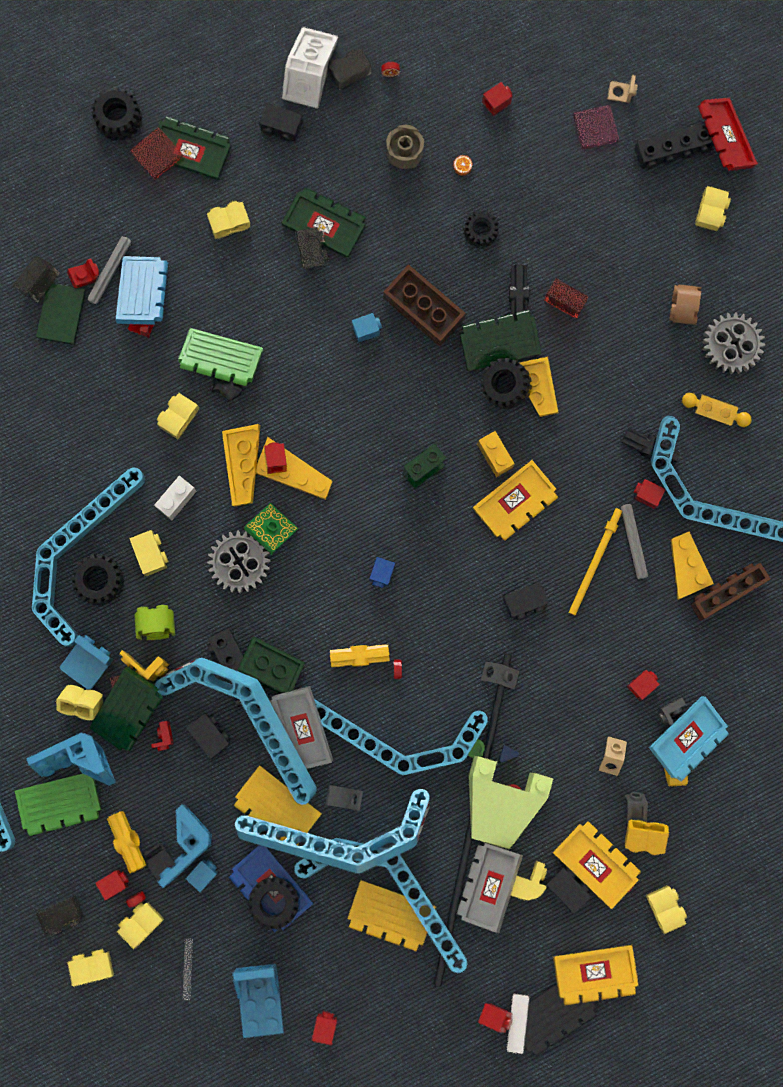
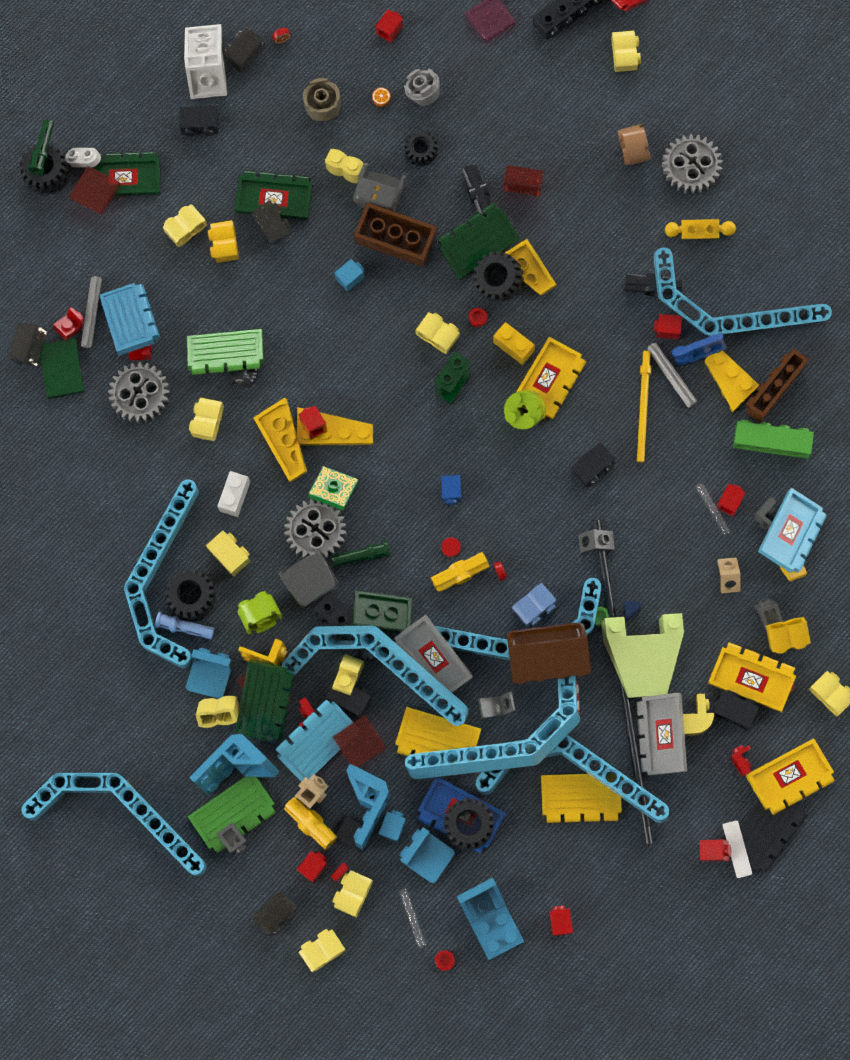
camera: 10 degrees left, 5 degrees down
(47, 829) = (232, 839): none -> dark grey bracket
(73, 602) = (176, 624): none -> light blue pin
(113, 352) = (153, 400): none -> light grey gear
(115, 100) = (39, 153): none -> dark green pin
(139, 812) = (312, 790): none -> tan brick
(157, 117) = (83, 157): none -> white plate
(163, 767) = (314, 744): none -> medium azure hinge
(201, 782) = (359, 741): none -> clear red tile
(202, 1021) = (444, 960): none -> red tile
(214, 609) = (309, 579): none -> dark grey piece
(215, 714) = (348, 674): none -> light yellow brick
(224, 916) = (427, 855): none -> dark azure bracket
(259, 250) = (224, 241): none -> yellow brick
(282, 604) = (370, 552): none -> dark green pin
(360, 627) = (451, 547): none -> red tile
(405, 222) = (341, 165): none -> light yellow brick
(411, 768) = (548, 652): none -> reddish brown windscreen
(417, 714) = (534, 605): none -> medium blue brick
(425, 255) = (378, 189): none -> dark grey piece
(427, 415) = (437, 332): none -> light yellow brick
(470, 522) = (534, 405): none -> lime brick
(471, 415) = (478, 317): none -> red tile
(505, 170) = (422, 87): none -> light grey cone
(554, 944) = (741, 764): none -> red bracket
(622, 686) = (713, 510): none -> clear bar
(669, 527) = (699, 349): none -> blue hinge
(706, 642) = (773, 439): none -> bright green brick

